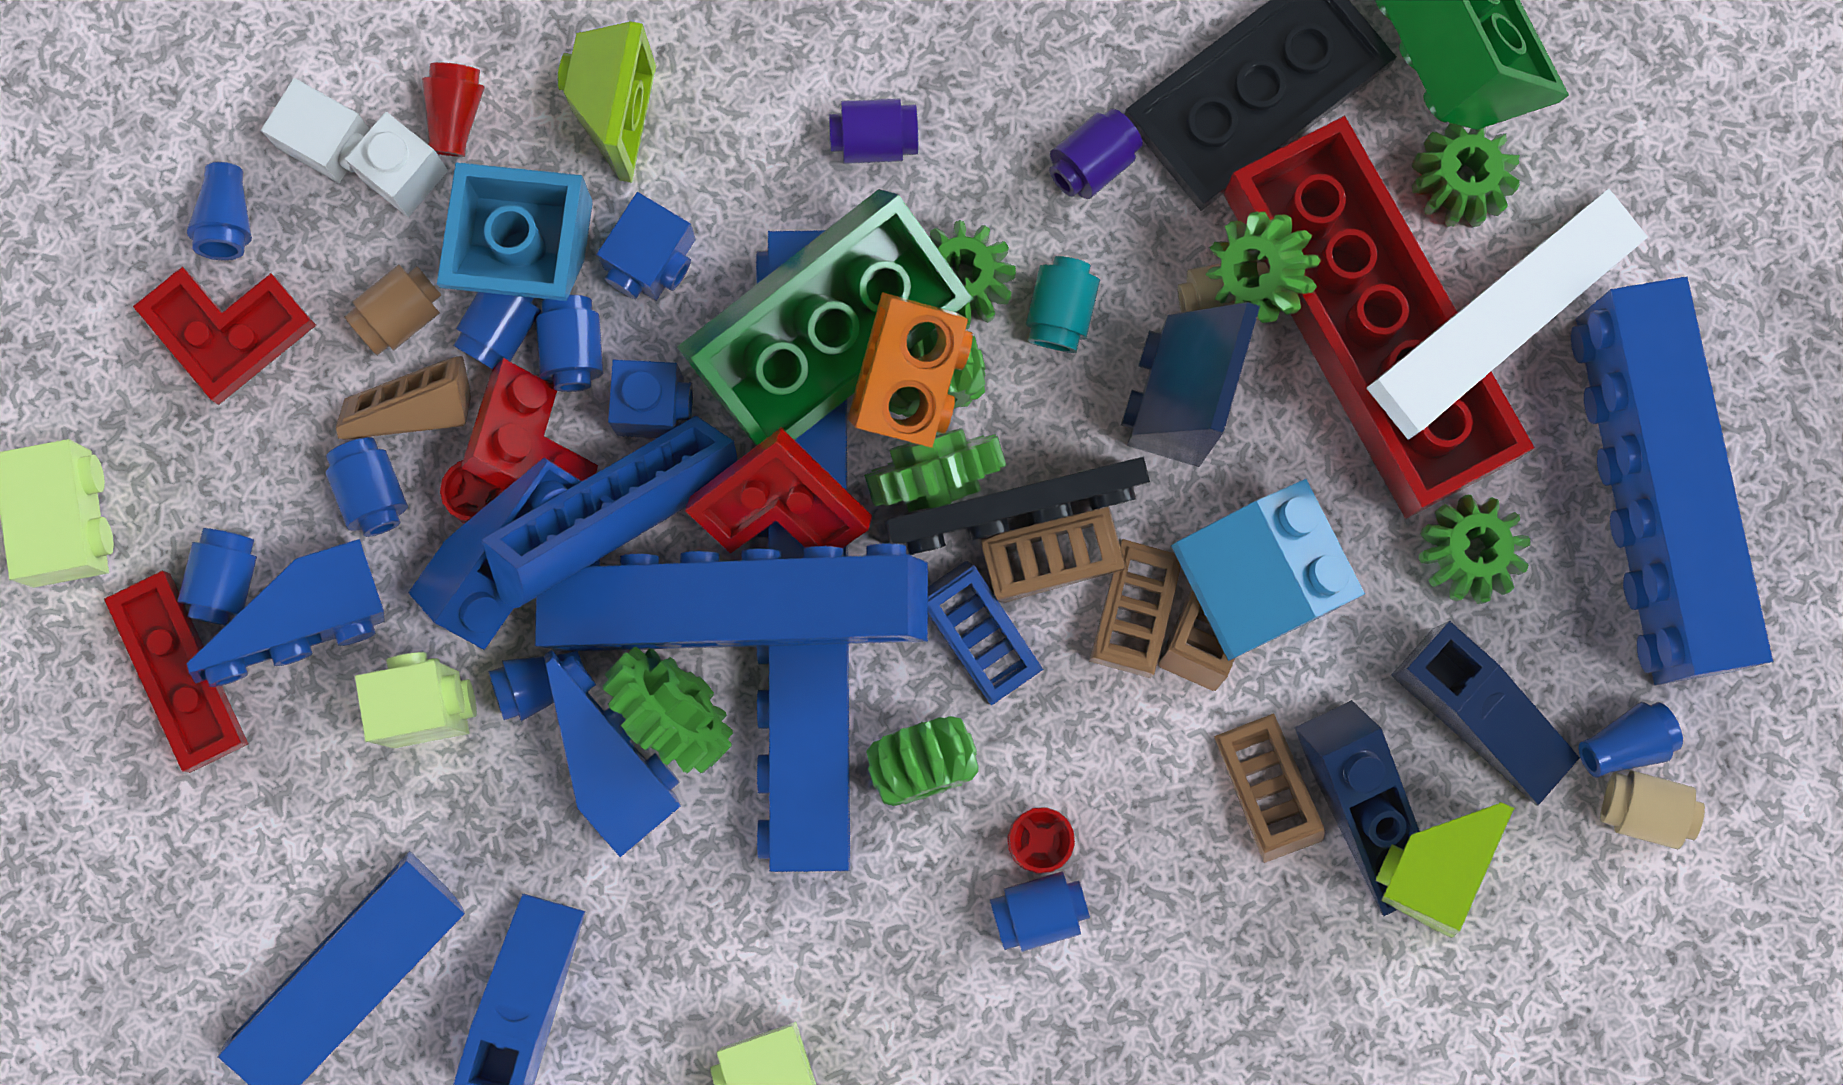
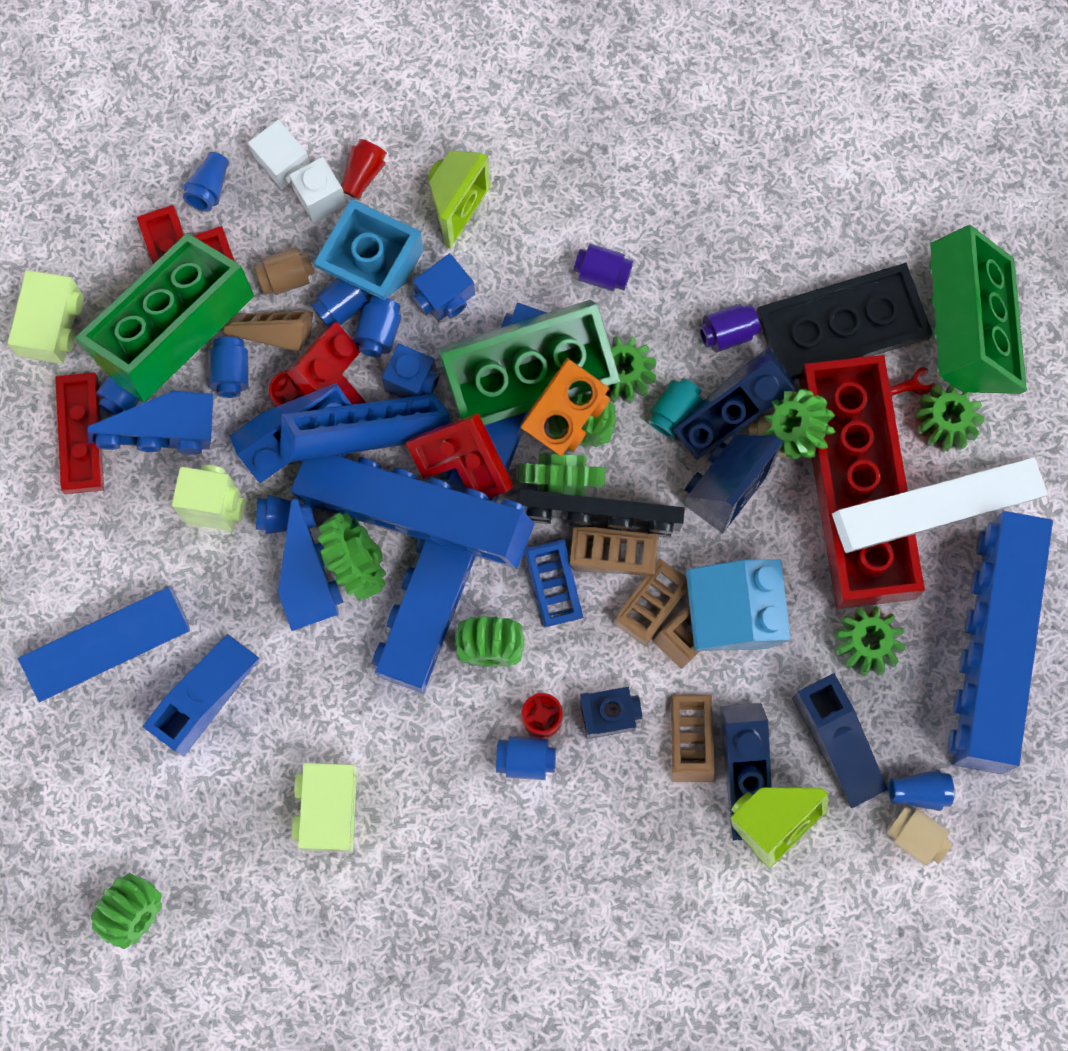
camera: 25 degrees right, 5 degrees down
(240, 447) = (166, 316): none -> green slope
(1114, 805) = (598, 723): none -> dark blue brick
(1151, 267) = (735, 403): none -> dark blue slope
(1395, 143) = (913, 384): none -> red hand

